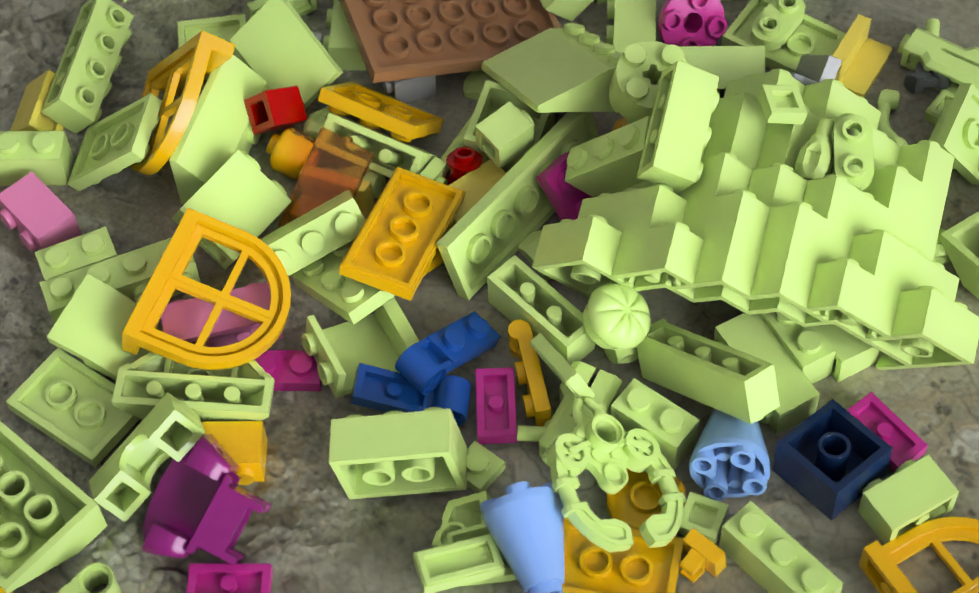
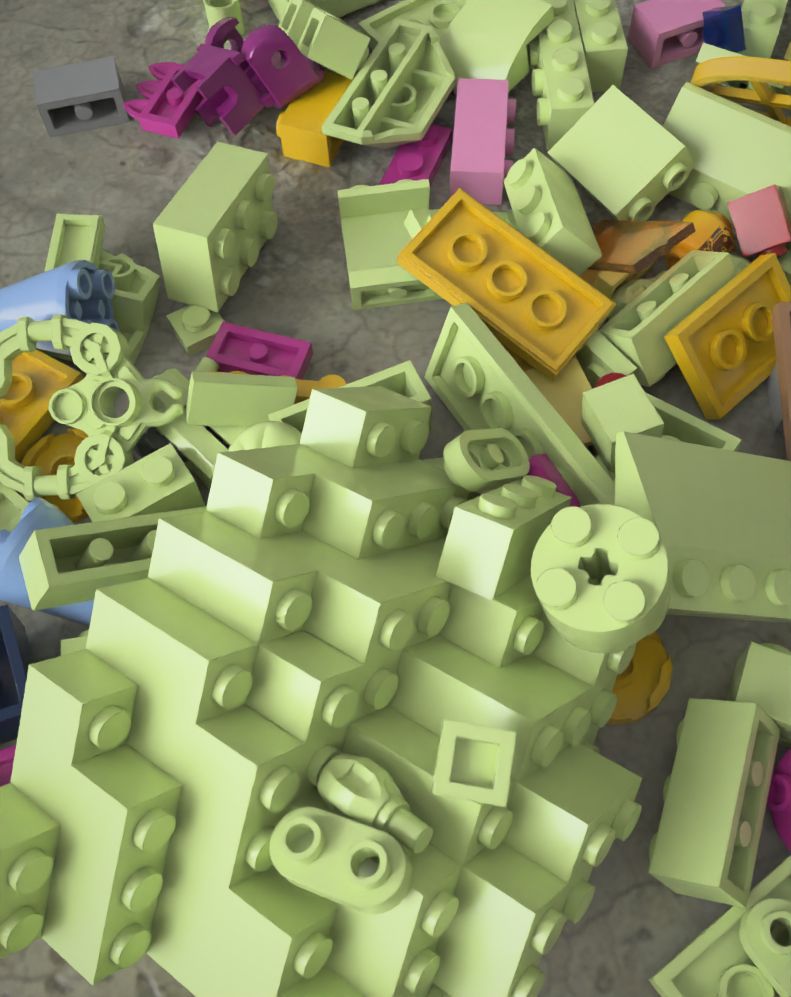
camera: 110 degrees right, 5 degrees up
(61, 170) = (724, 28): none -> clear blue plate
(169, 276) = (507, 54): yellow window -> none
(391, 391) = (307, 277): blue plate -> none
(445, 350) = (340, 314): blue plate -> none
(568, 189) = (485, 459): none -> yellowish green plate
(679, 127) = (465, 560): yellowish green brick -> none
(816, 68) = (621, 929): light grey panel -> none

